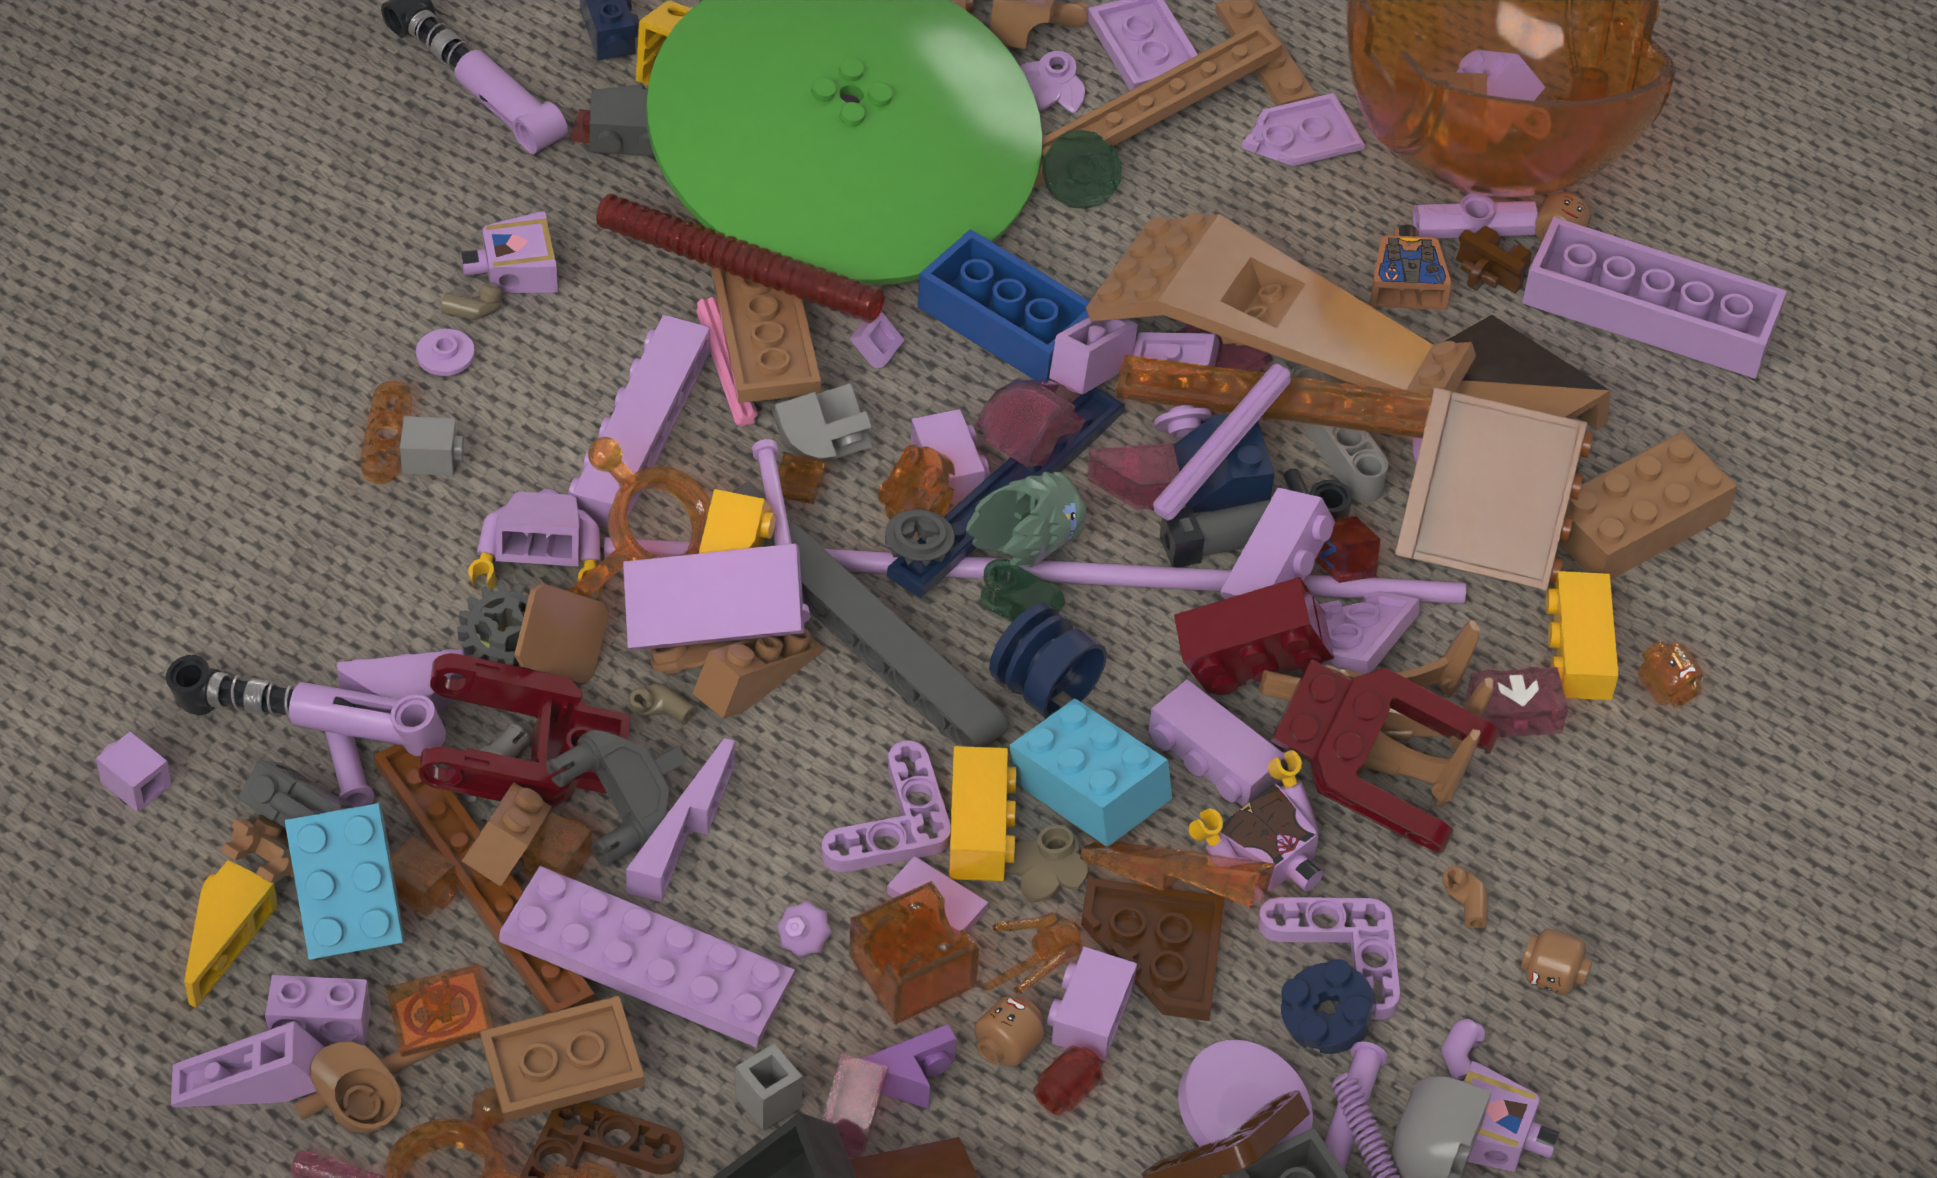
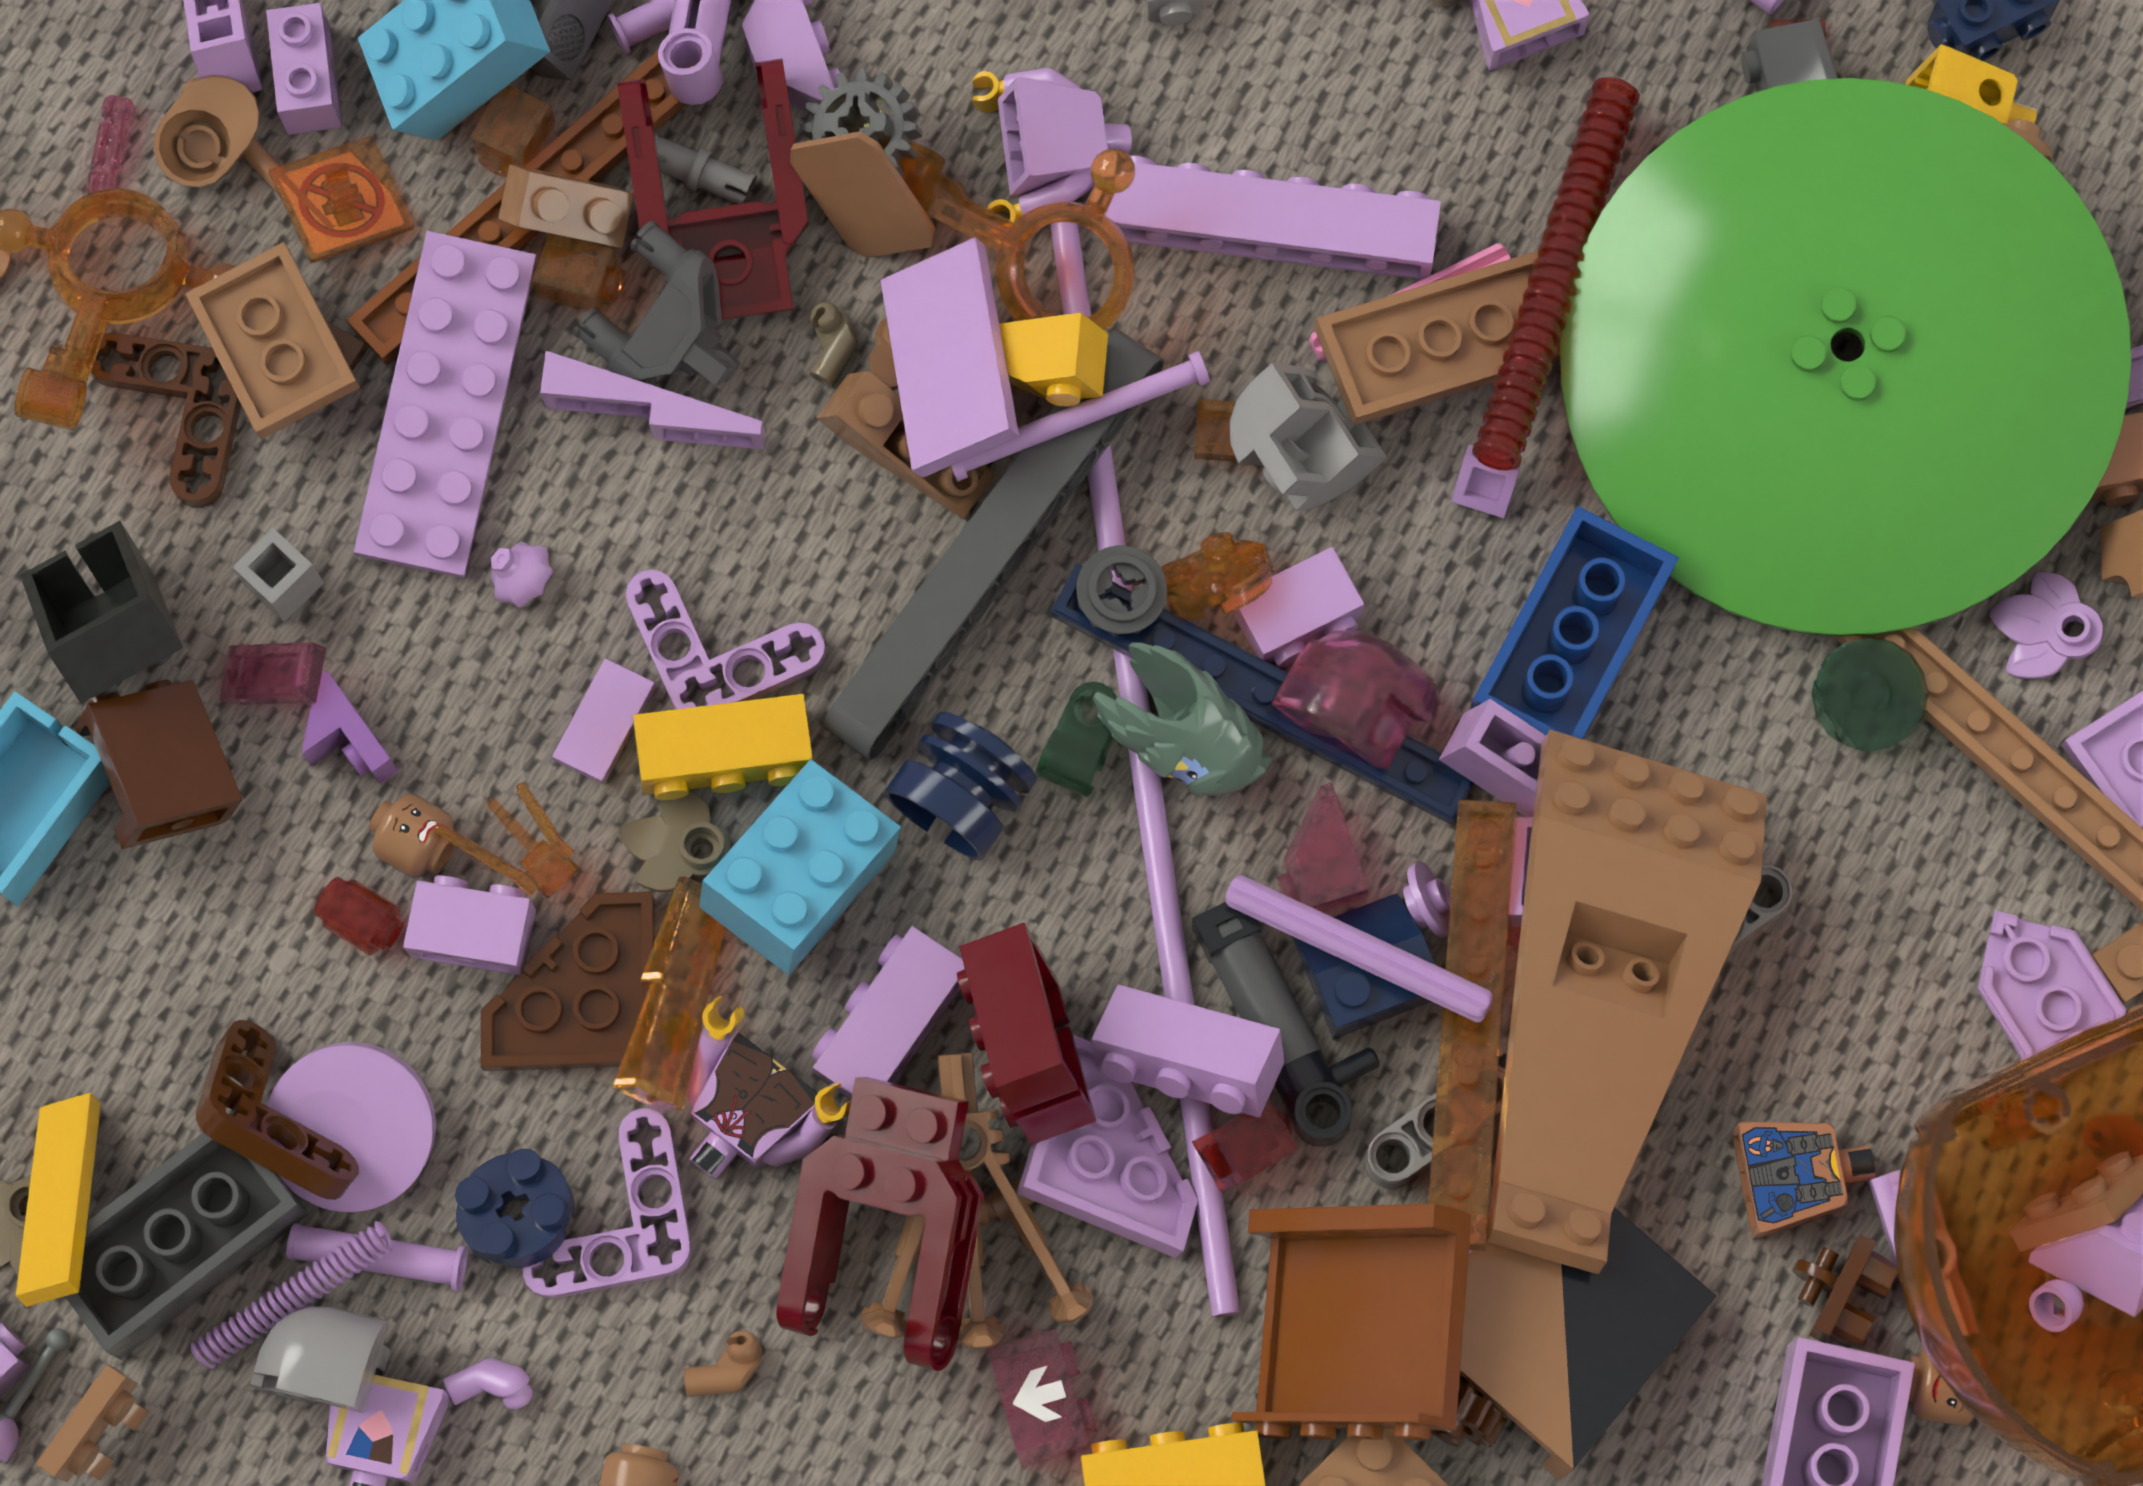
camera: 85 degrees right, 25 degrees up
(912, 953) = (487, 702): clear orange piece -> none

